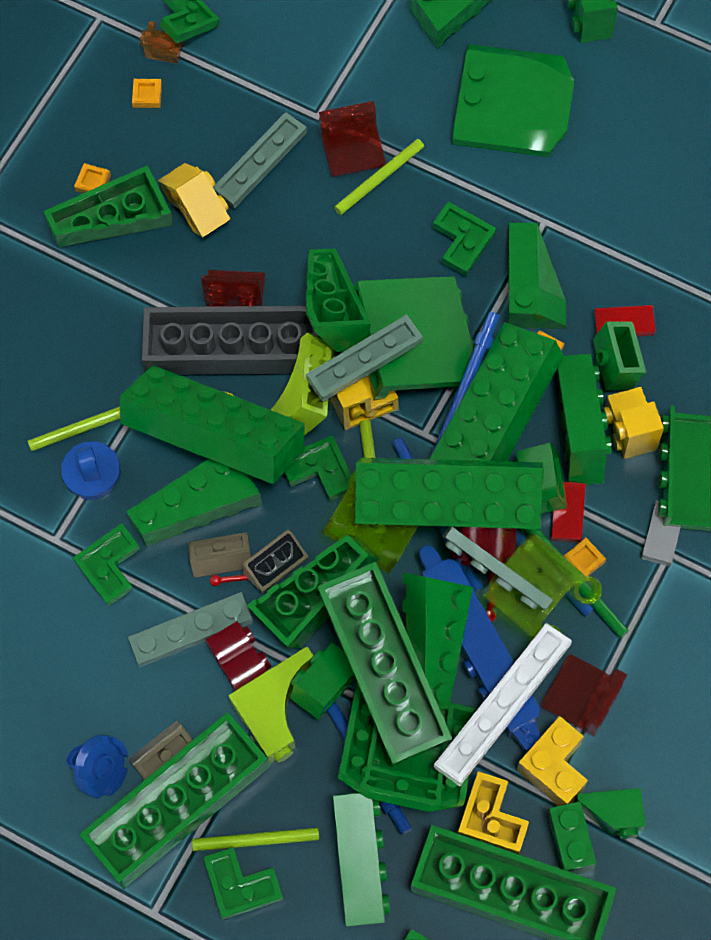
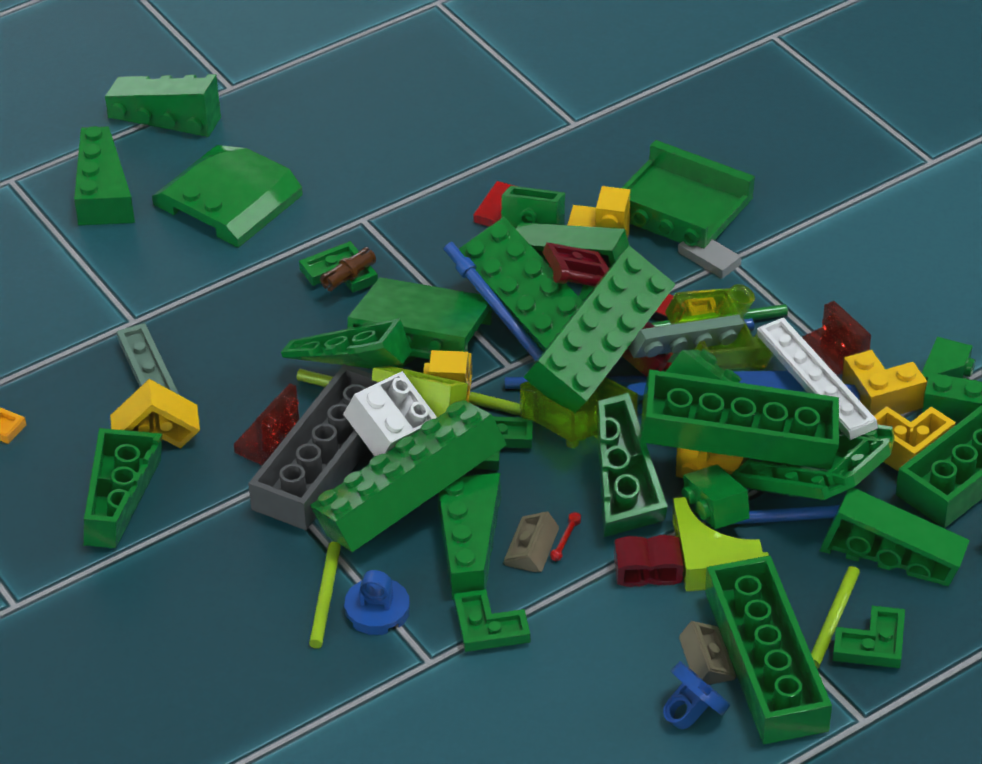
camera: 65 degrees left, 25 degrees down
(91, 177) = (64, 497): light orange tile -> none
(189, 629) = (594, 591): sand green plate -> none
(265, 375) = (387, 413): none -> white slope
(274, 561) = (568, 502): slope -> none
(351, 138) = (181, 302): clear red bracket -> none
(364, 358) = (433, 332): sand green plate -> none
(379, 177) = (232, 302): lime bar -> none
(451, 246) = (348, 269): none -> reddish brown pin
(533, 286) = (410, 244): green wedge -> none
(534, 426) = (574, 264): none -> dark red plate

